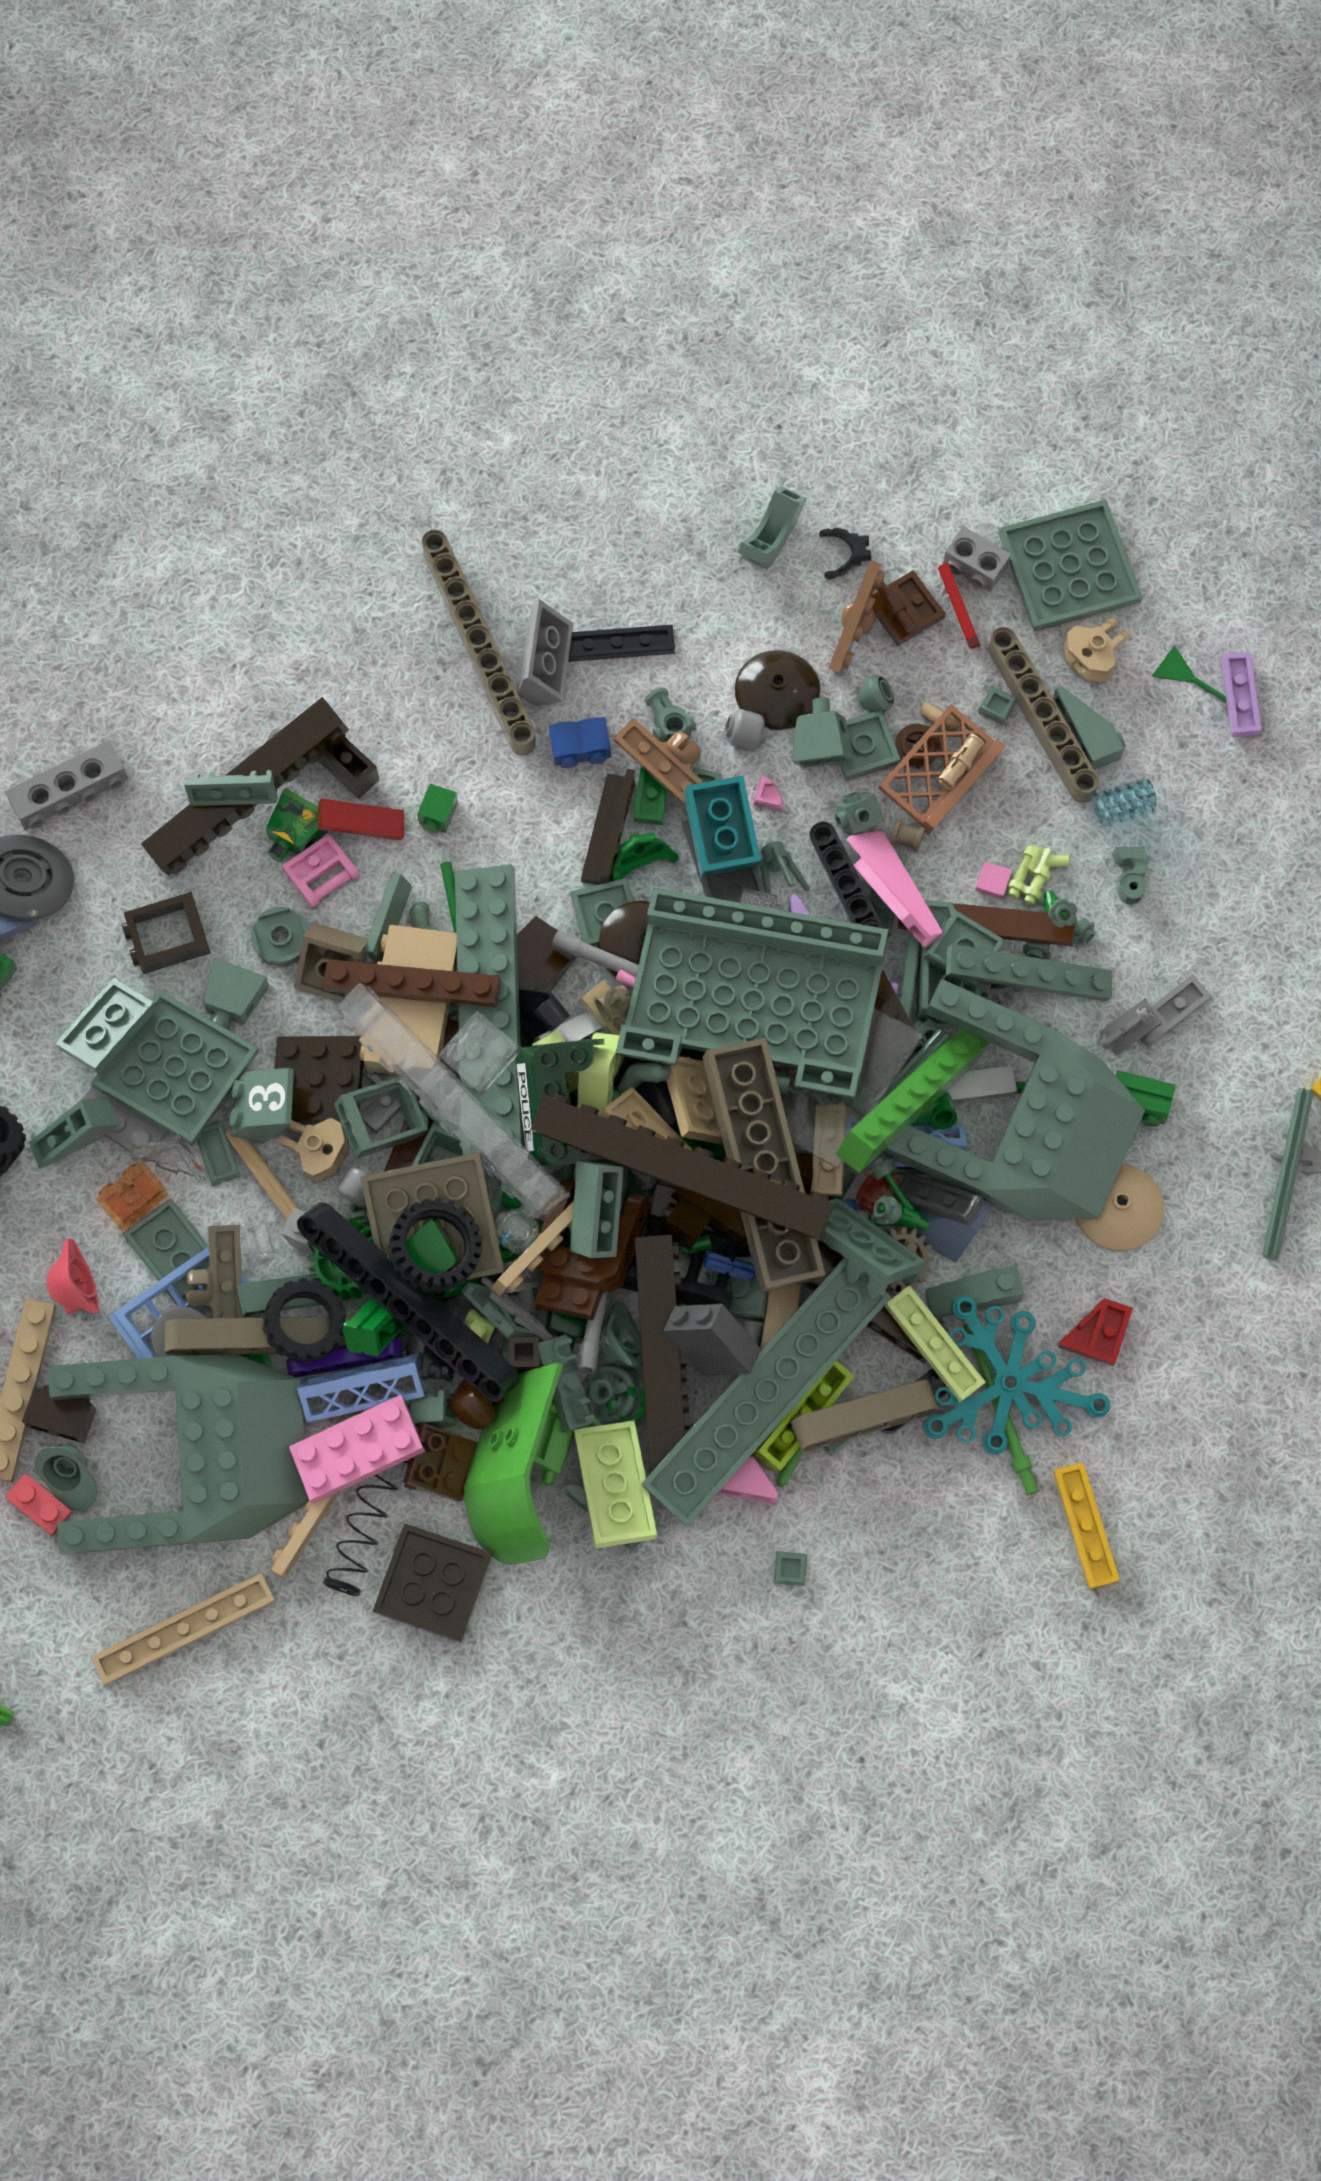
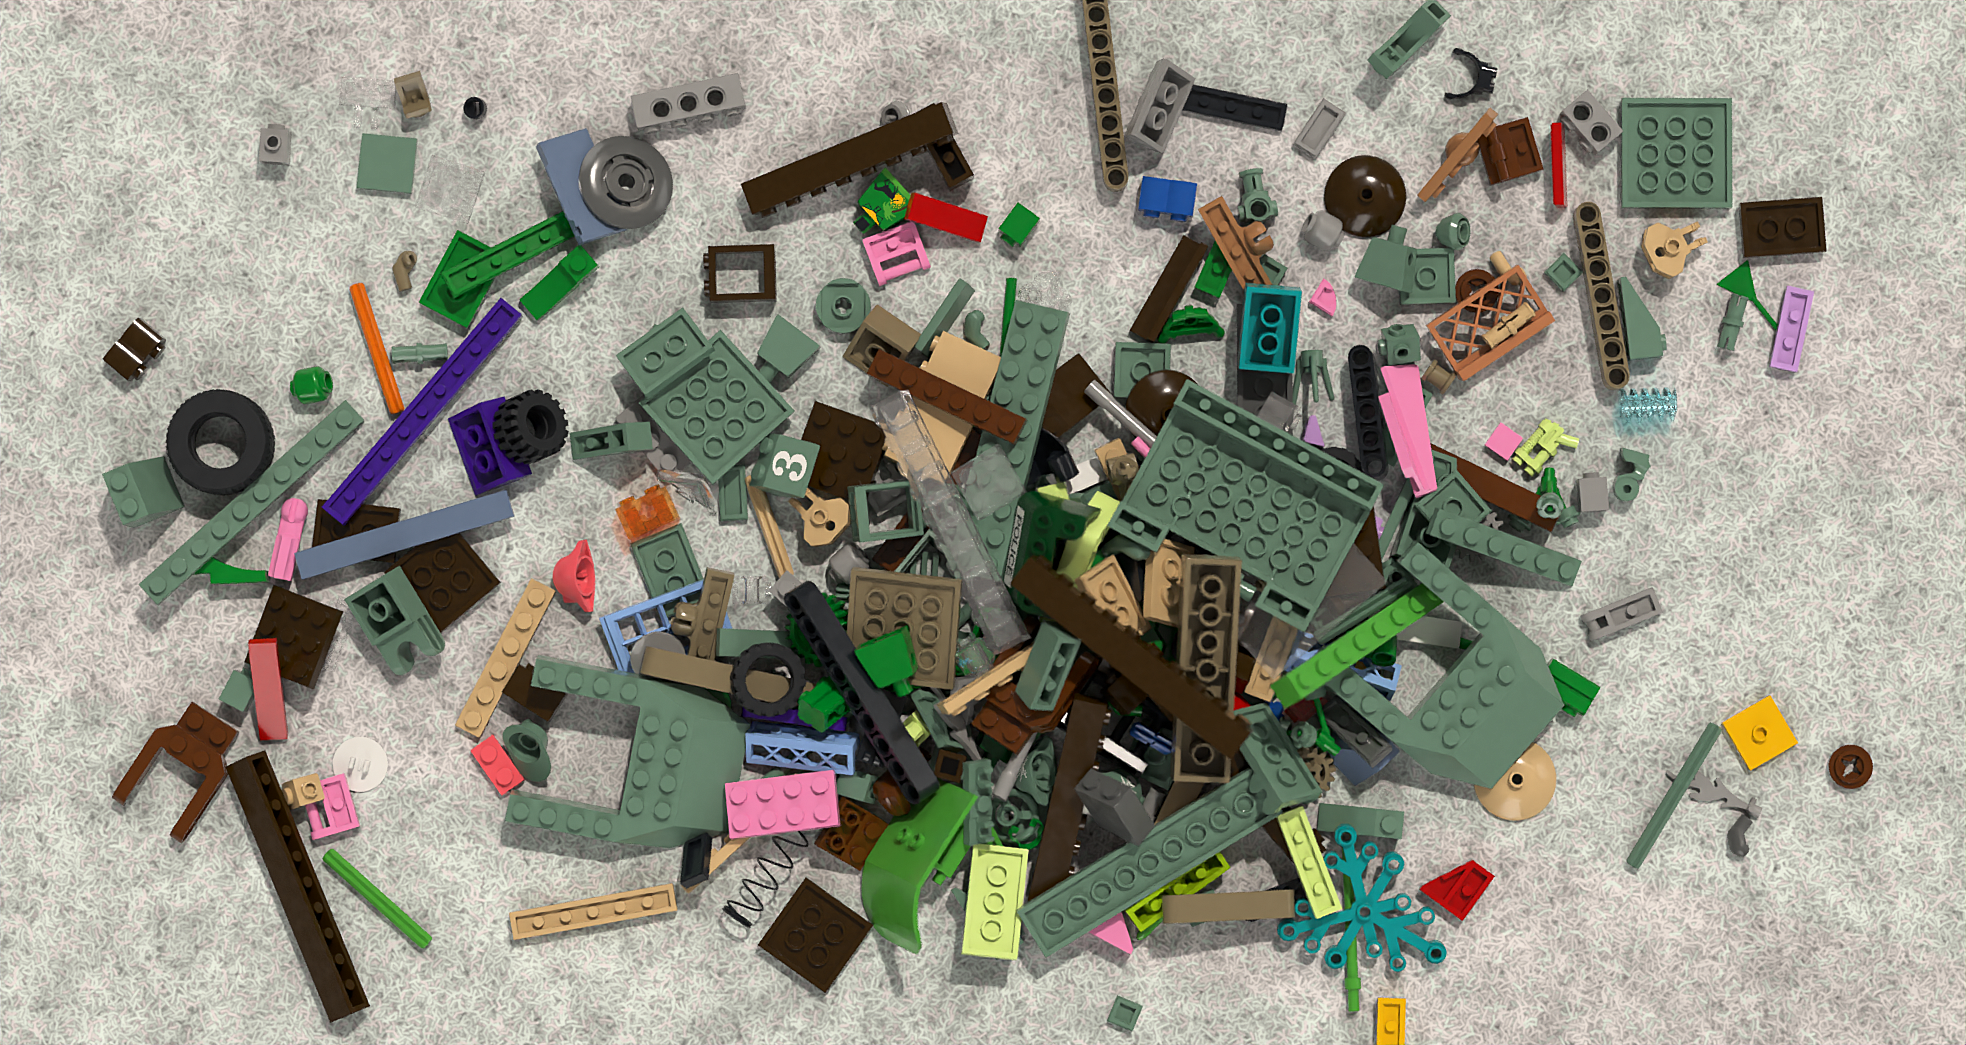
camera: 20 degrees right, 15 degrees up
(231, 789) = (835, 164): sand green plate -> none
(280, 1537) = (696, 860): none -> black tile
(450, 1214) = (931, 655): black tyre -> none
(711, 639) = (1319, 128): none -> light grey tile
(983, 1247) = (1383, 781): none -> clear tile
(1100, 902) = (1592, 493): none -> light grey brick
(1129, 1027) = (1577, 621): light grey hinge -> none
(1181, 703) = (1732, 322): none -> sand green pin
(1197, 604) = (1782, 227): none -> dark brown plate

